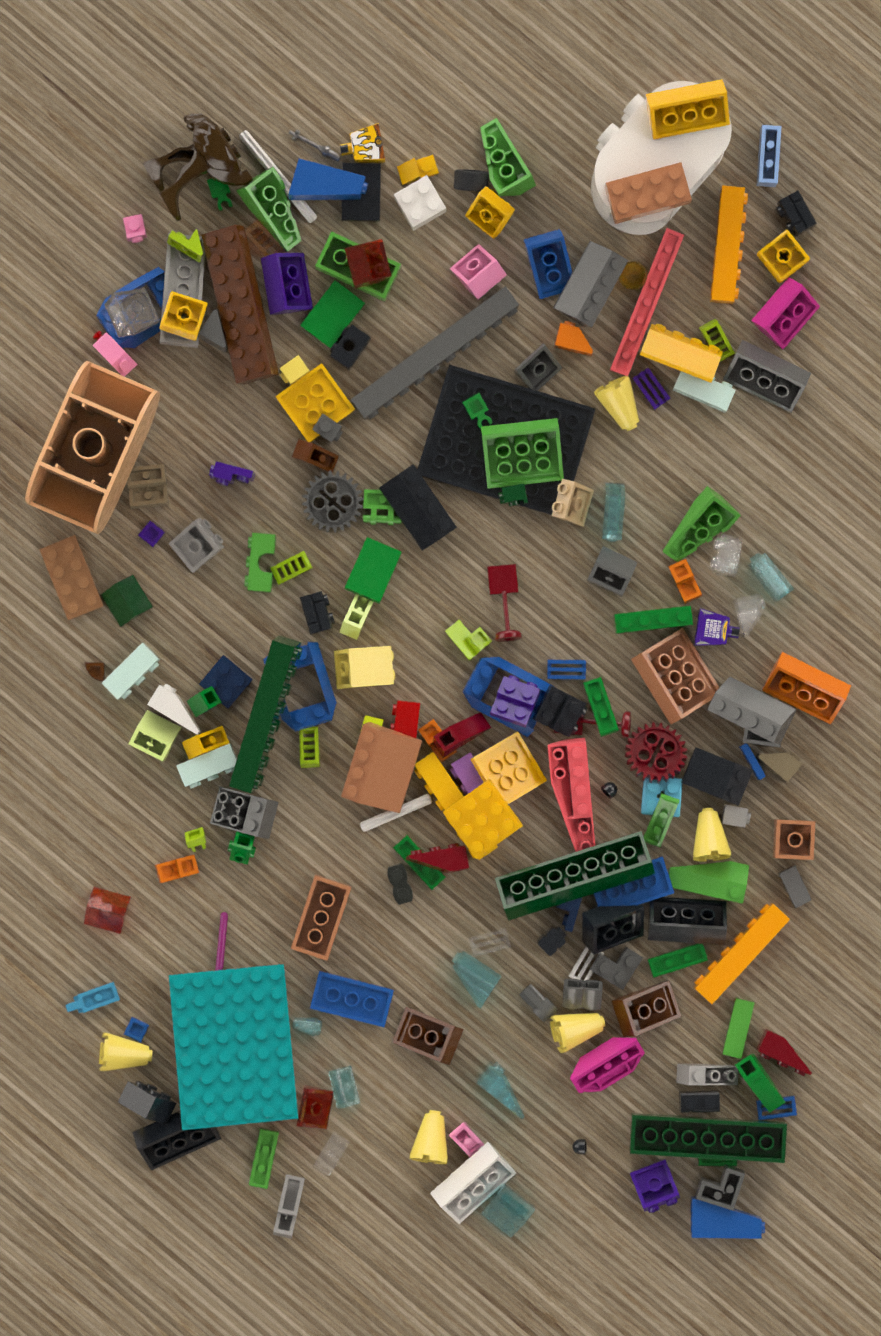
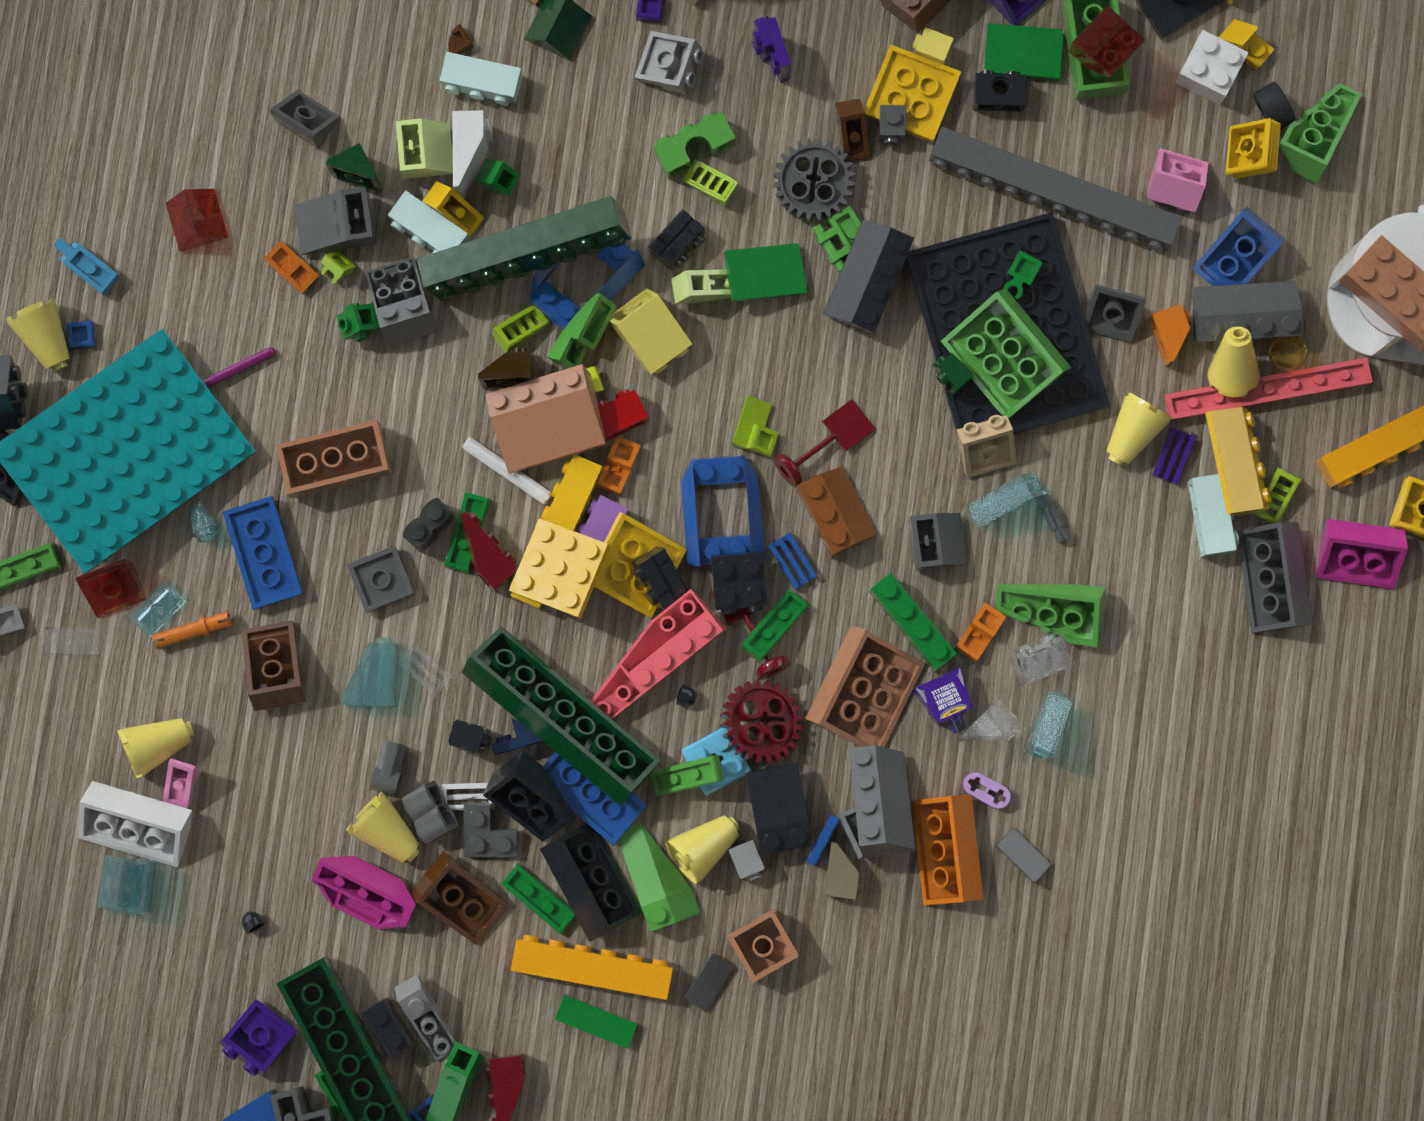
camera: 60 degrees right, 5 degrees down
(84, 799) = (305, 118): none -> dark grey slope
(141, 787) = (354, 168): none -> dark green slope
(166, 823) = (335, 221): none -> dark grey slope
(226, 680) = (537, 190): dark blue plate -> none
(334, 770) = (508, 369): none -> dark brown slope
(339, 710) = (582, 332): none -> bright green slope
(373, 1072) = (203, 626): none -> orange pin
(415, 935) = (380, 579): none -> dark grey plate
(460, 734) = (642, 484): dark red slope -> none
(496, 1083) = (262, 784): clear light blue slope -> none
(515, 701) = (718, 522): plate -> none
(527, 759) = (659, 577): none -> black brick
(553, 622) = (836, 511): none -> dark orange slope
(621, 315) = (1235, 364): none -> light yellow cone
(643, 489) = (1053, 518): none -> dark grey axle
(738, 1028) = (503, 1020): bright green tile -> none
(774, 971) = (595, 1021): none -> green tile
(782, 636) = (989, 784): none -> lavender beam
(839, 643) = (1023, 855): none -> dark grey slope

